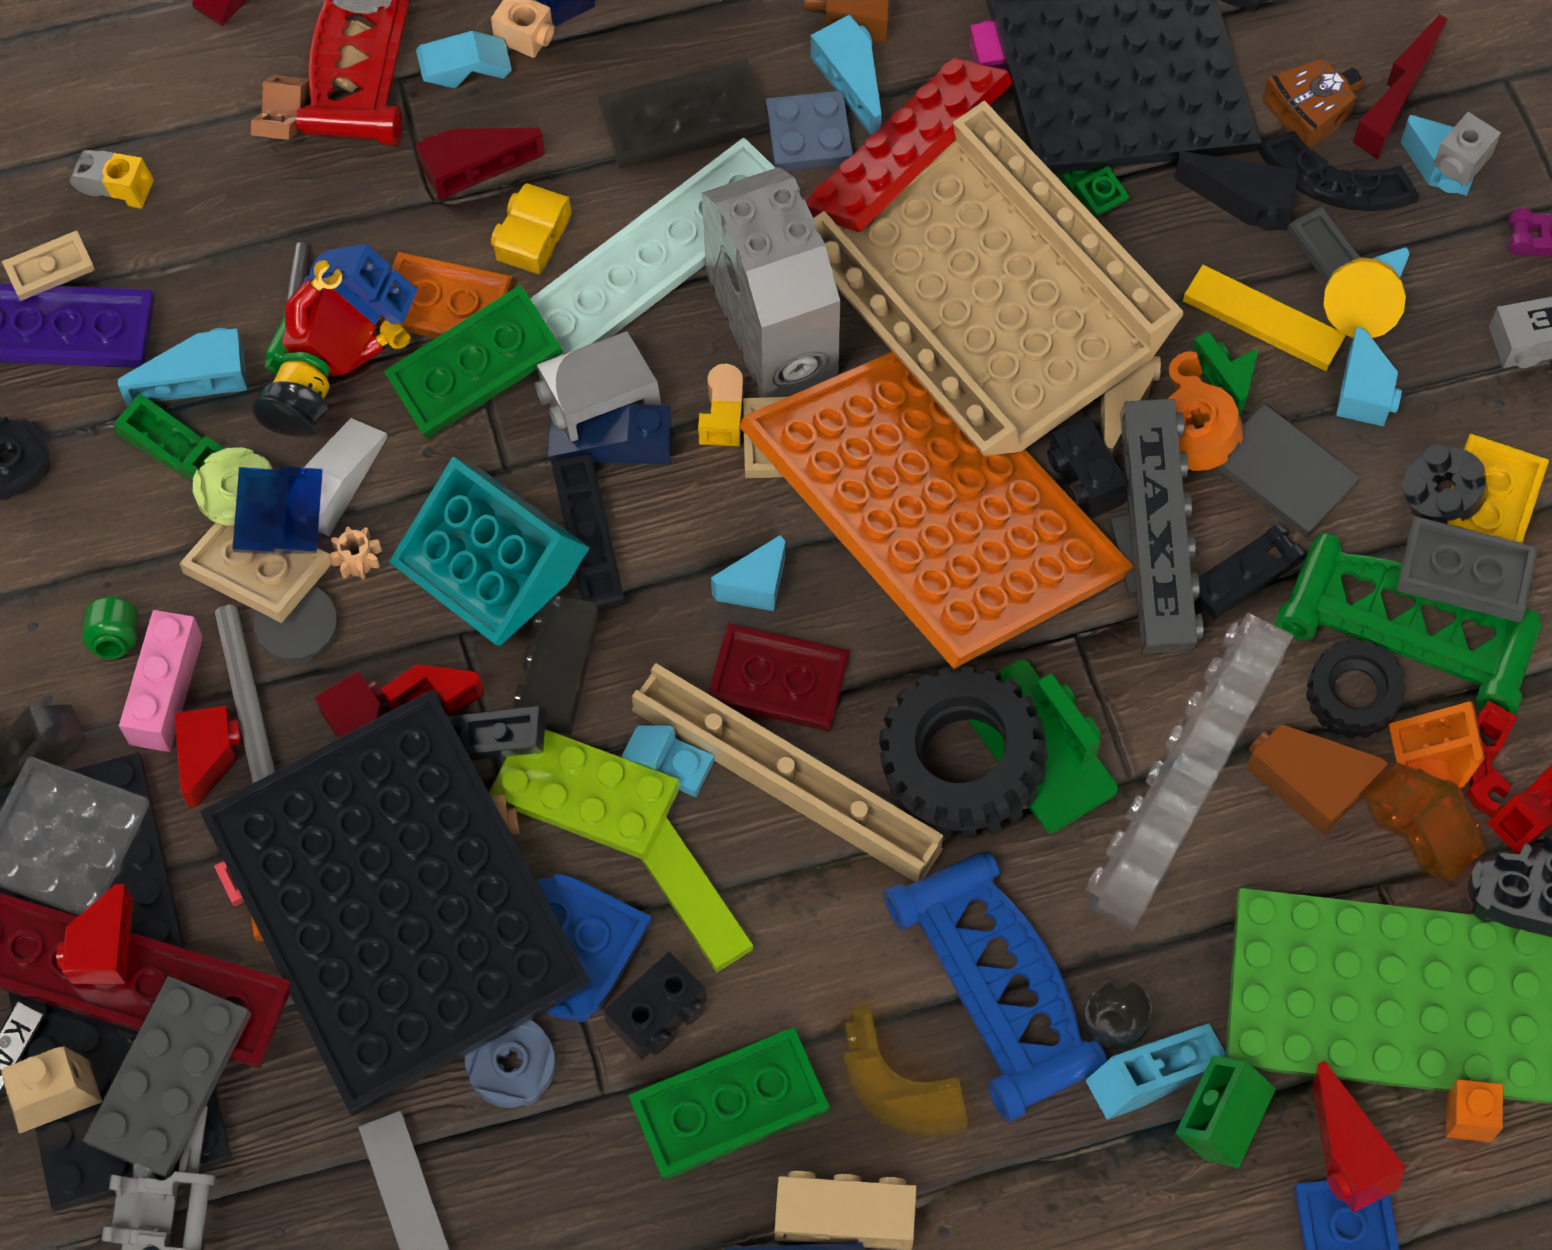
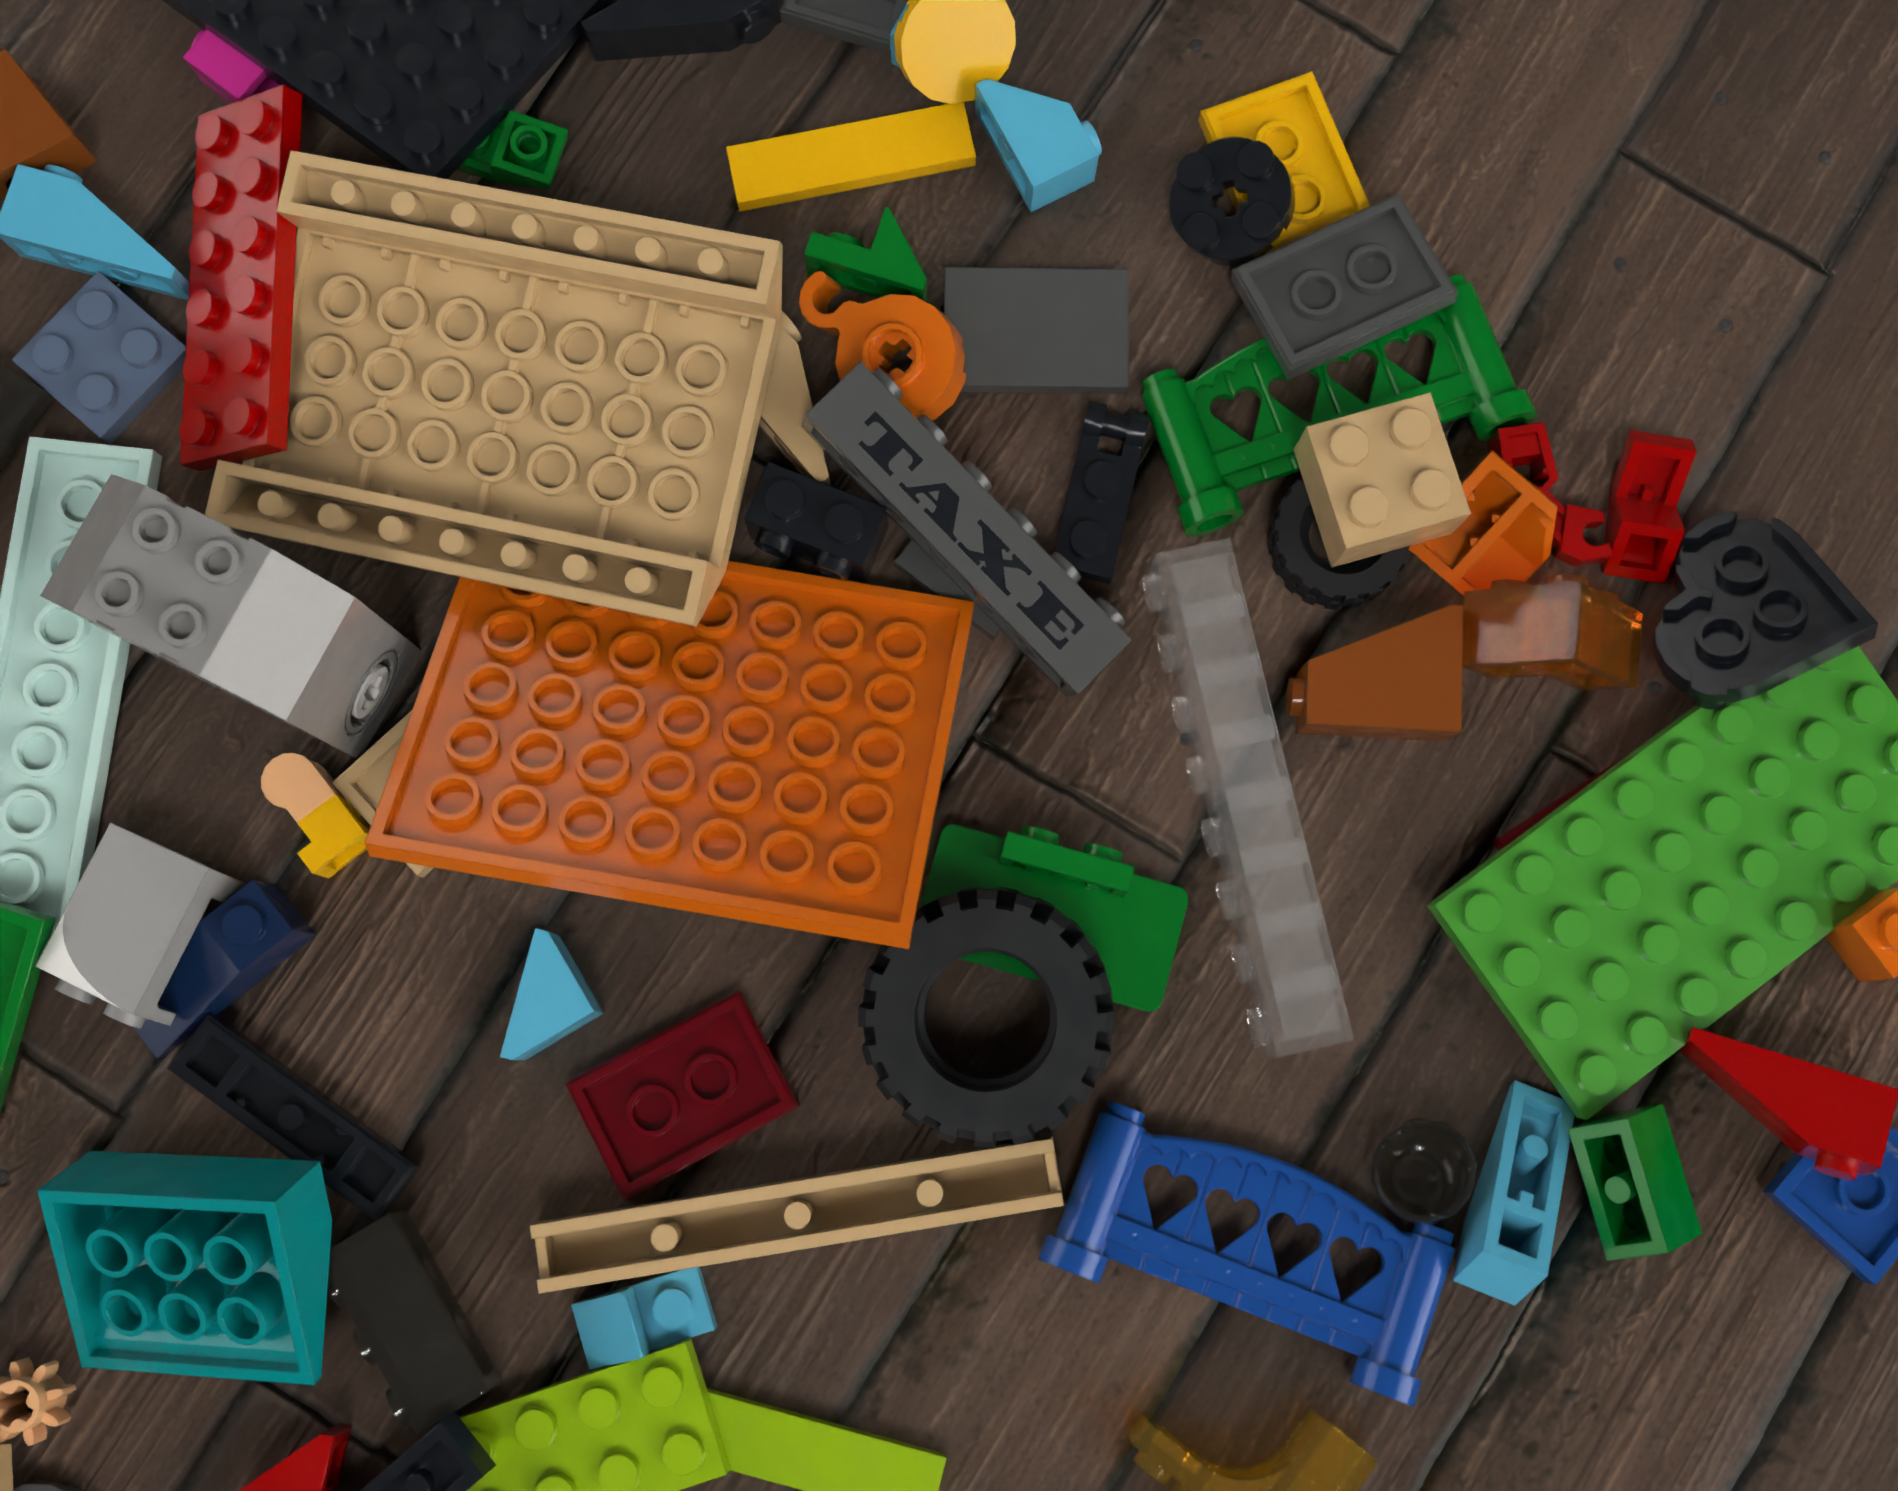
camera: 45 degrees left, 15 degrees up
(1396, 665) = (1381, 479): none -> tan brick

